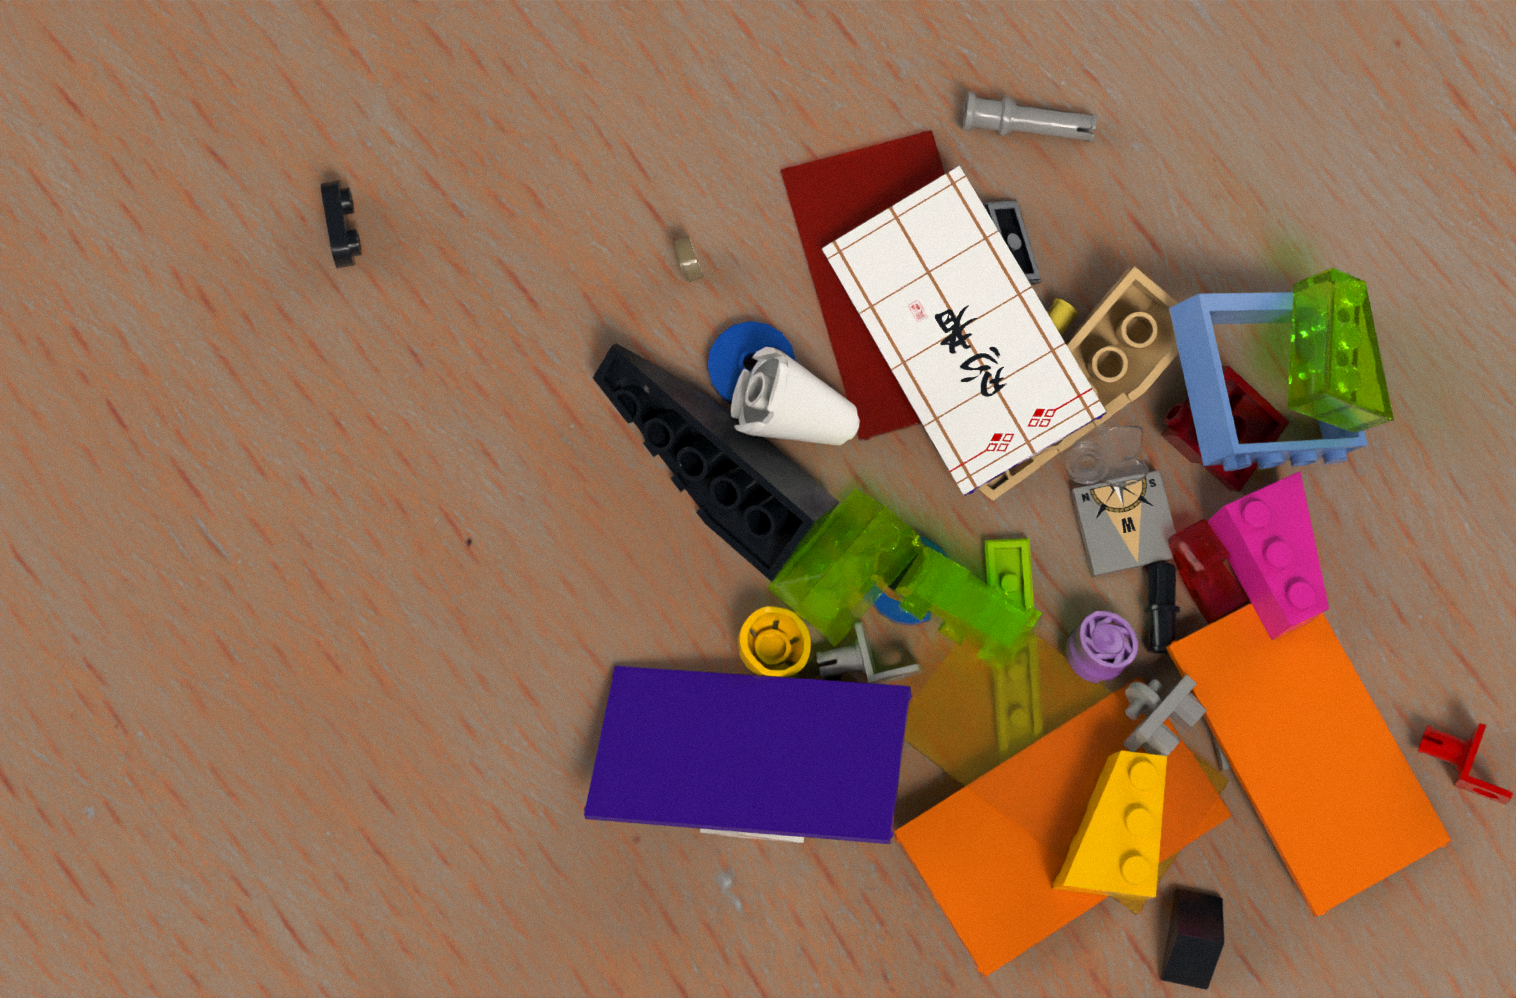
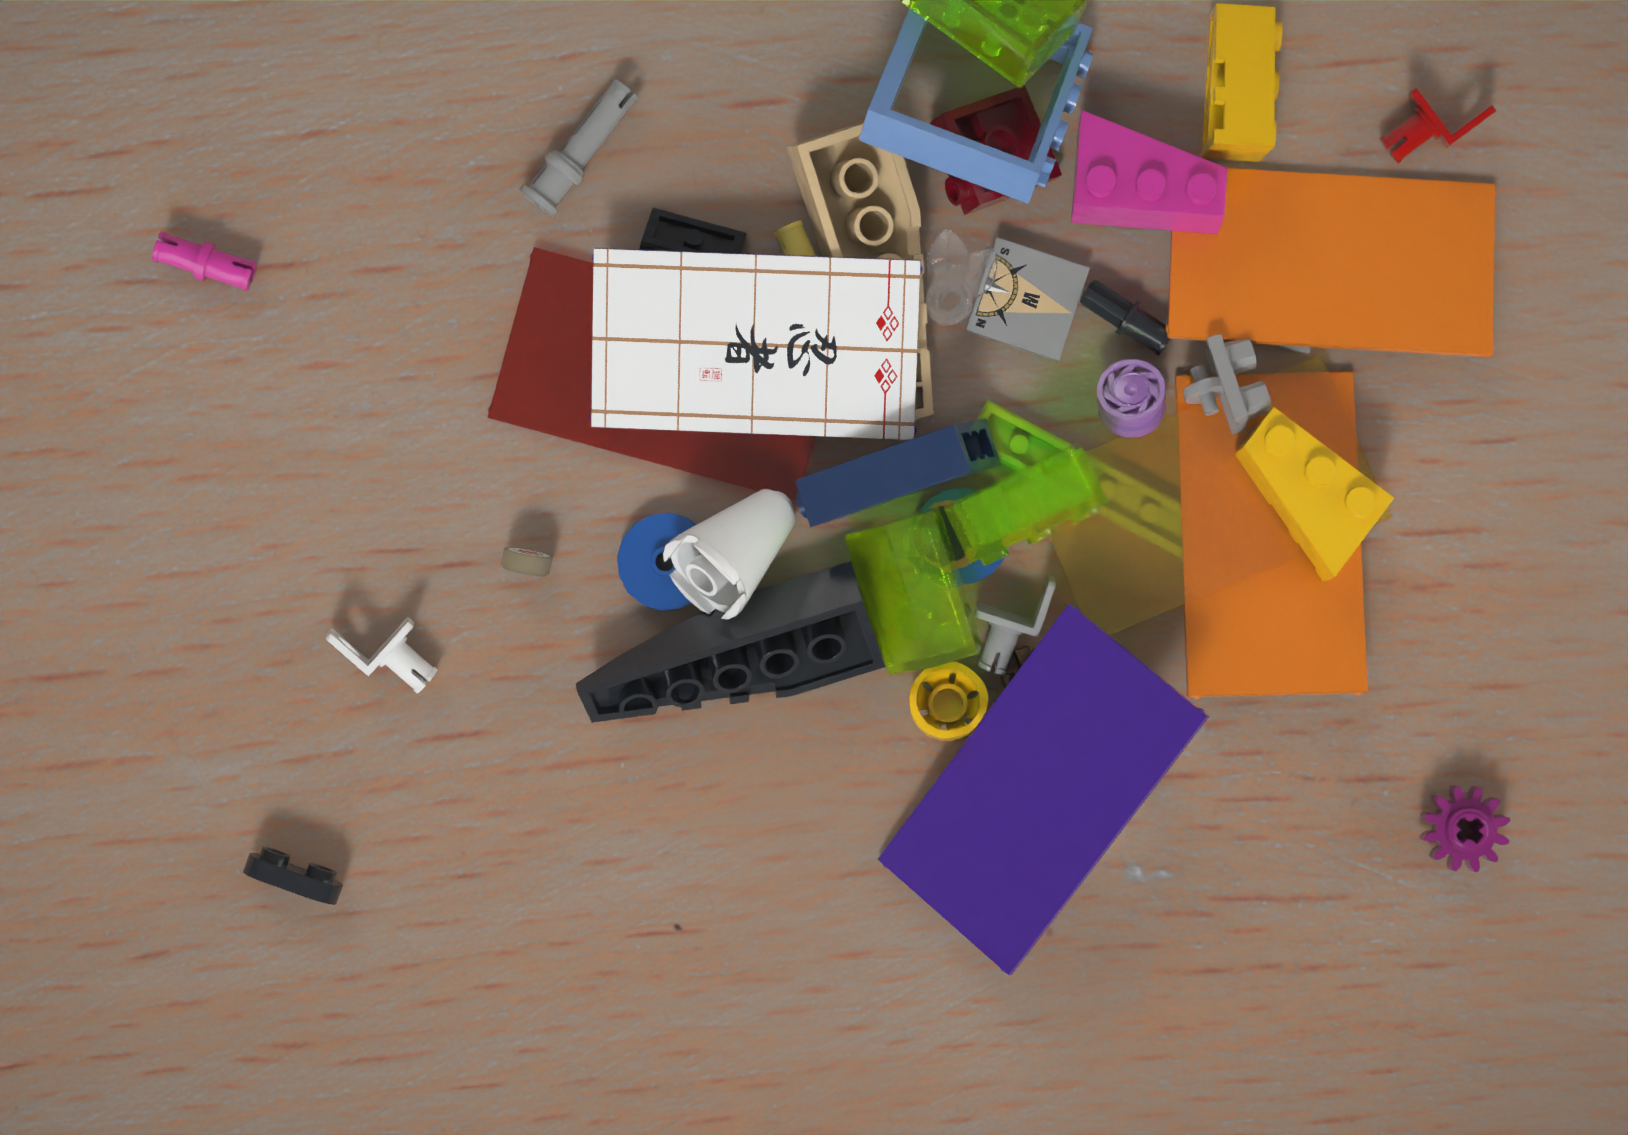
camera: 50 degrees left, 10 degrees up
(556, 198) = (392, 653): none -> white bracket
(932, 497) = (897, 472): none -> dark blue slope
(1193, 939) = (1442, 477): black slope -> none
(1201, 566) = (1120, 256): clear red slope -> none
(1399, 587) = (1241, 83): none -> yellow wedge

